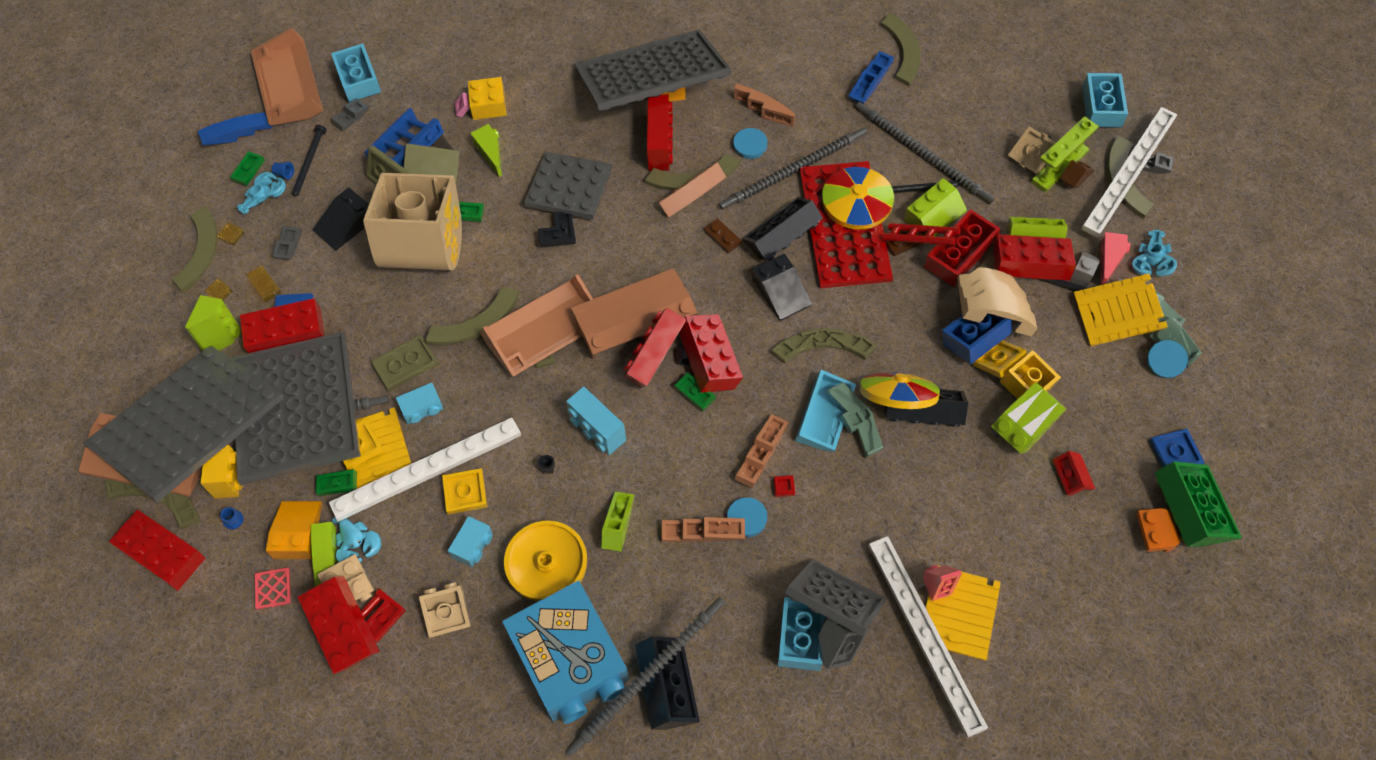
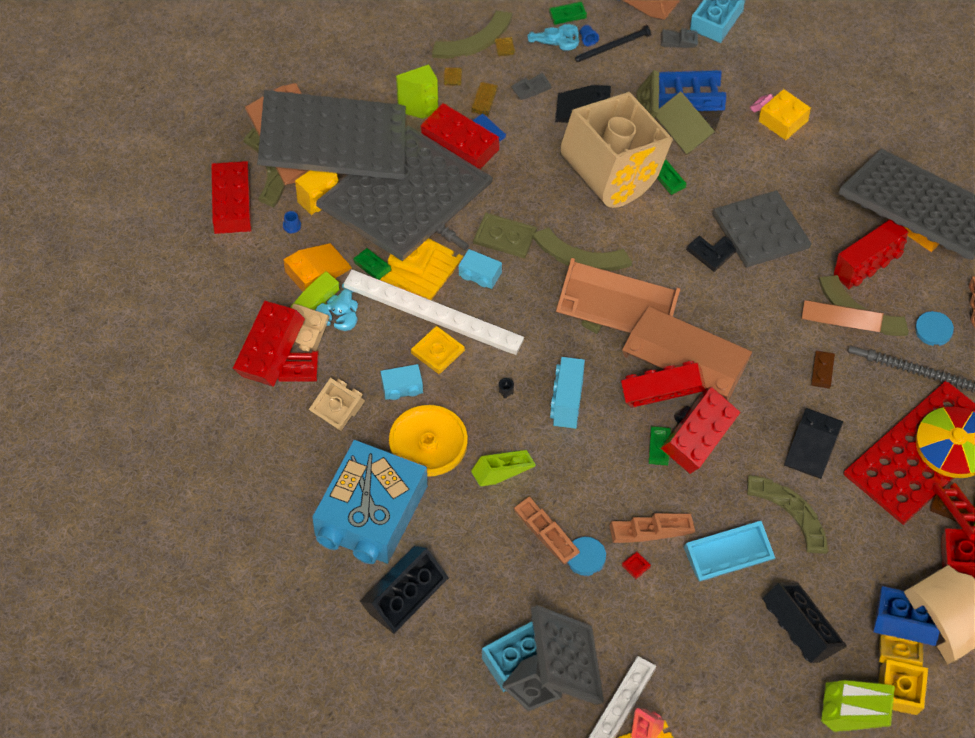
camera: 50 degrees right, 5 degrees down
(272, 588) = (256, 279): coral window -> none
(488, 145) = (742, 150): lime slope -> none
(586, 735) = (402, 564): dark grey hose -> none
(783, 228) = (868, 406): black slope -> none
(857, 418) = (742, 577): sand green plate -> none
(899, 390) = (792, 588): dish -> none

